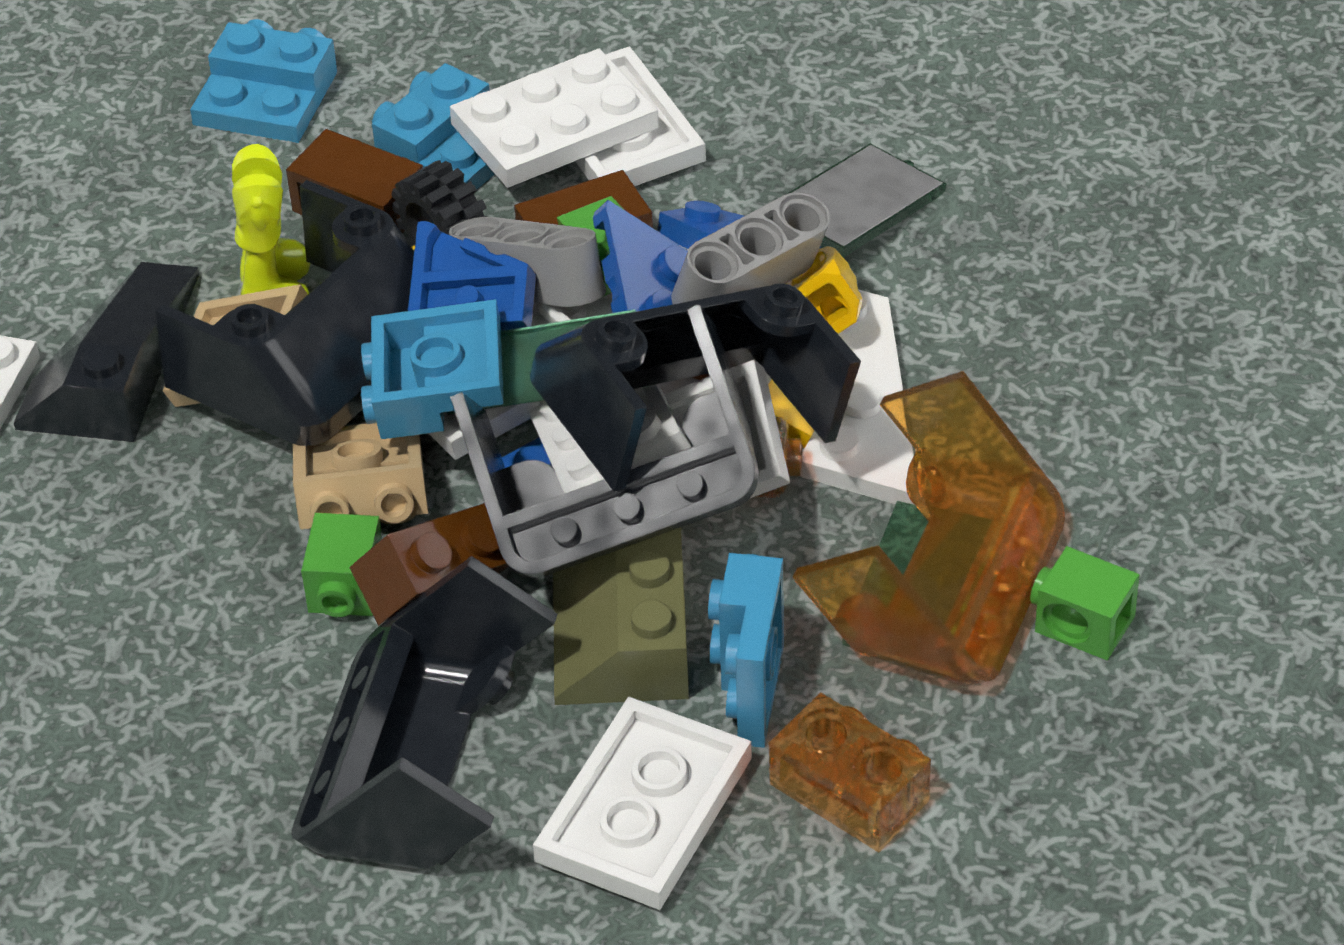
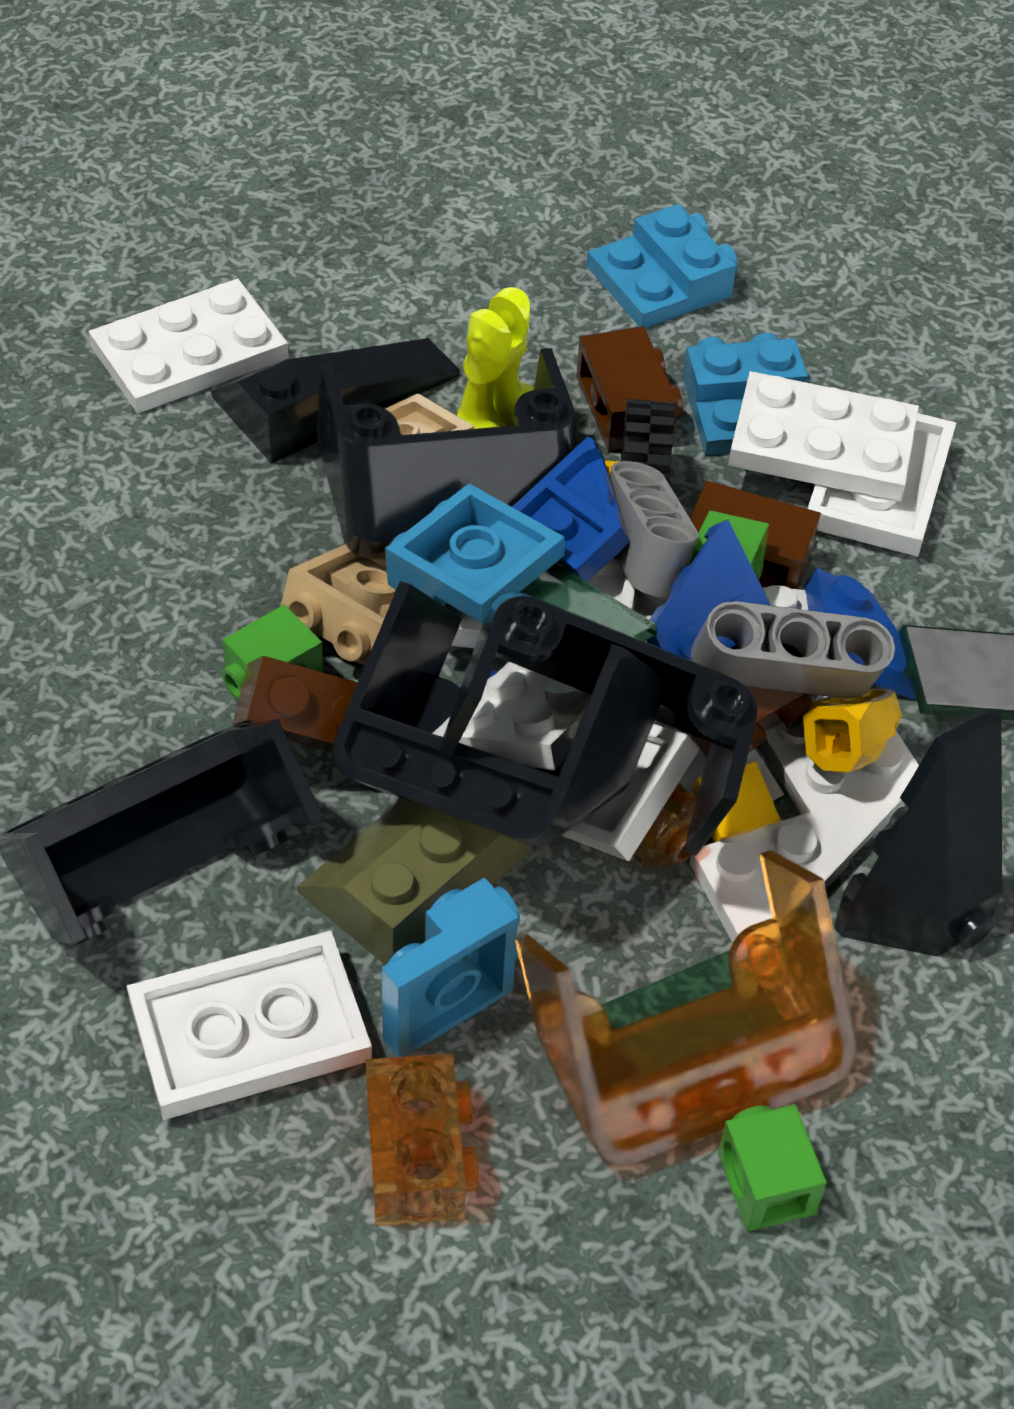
camera: 40 degrees right, 5 degrees up
(989, 313) = (943, 856): none -> black wedge

